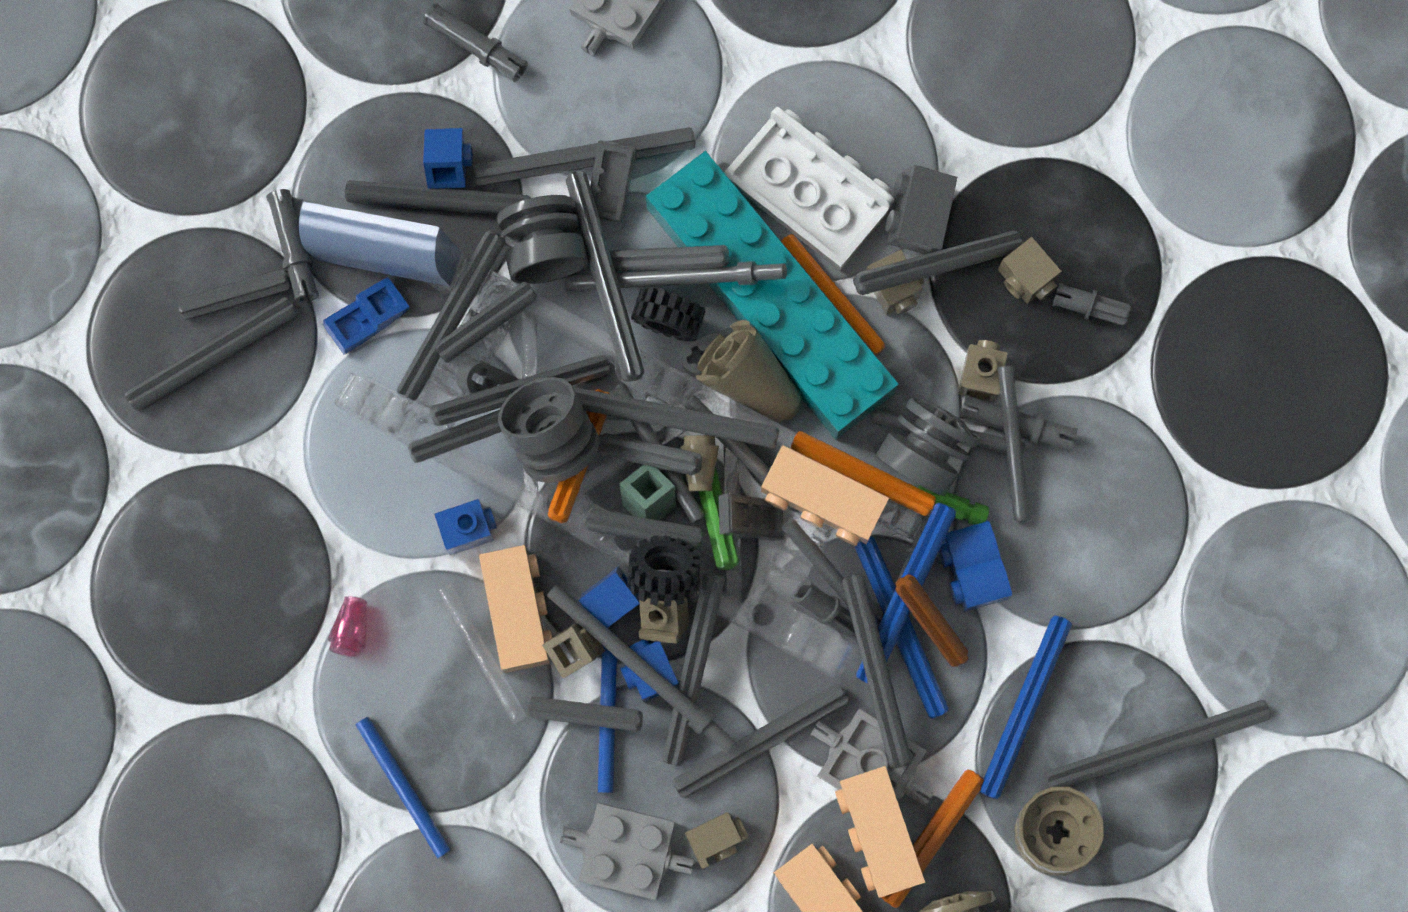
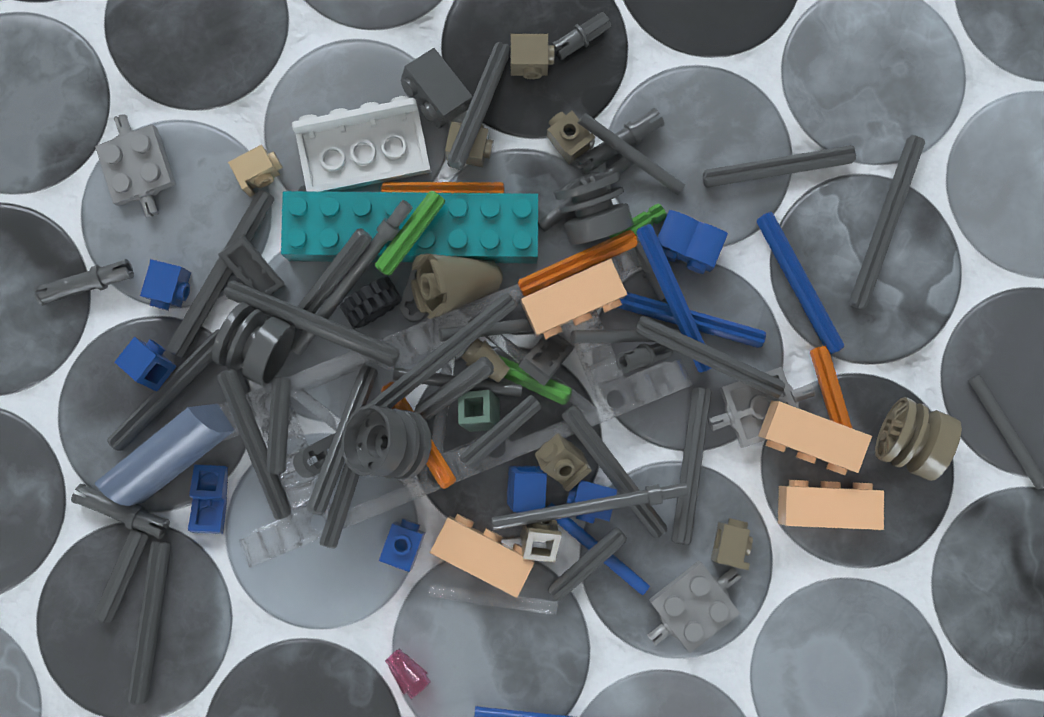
camera: 55 degrees left, 5 degrees up
(532, 117) = (166, 285): none -> blue brick
(659, 585) = (551, 452): black tyre -> none
(707, 109) = (255, 169): none -> tan brick
(760, 296) = (410, 233): none -> bright green axle
(931, 620) = (704, 296): dark orange axle -> none
(1077, 818) = (917, 322): dark tan wheel -> none
(1124, 596) = (779, 166): none -> dark grey axle

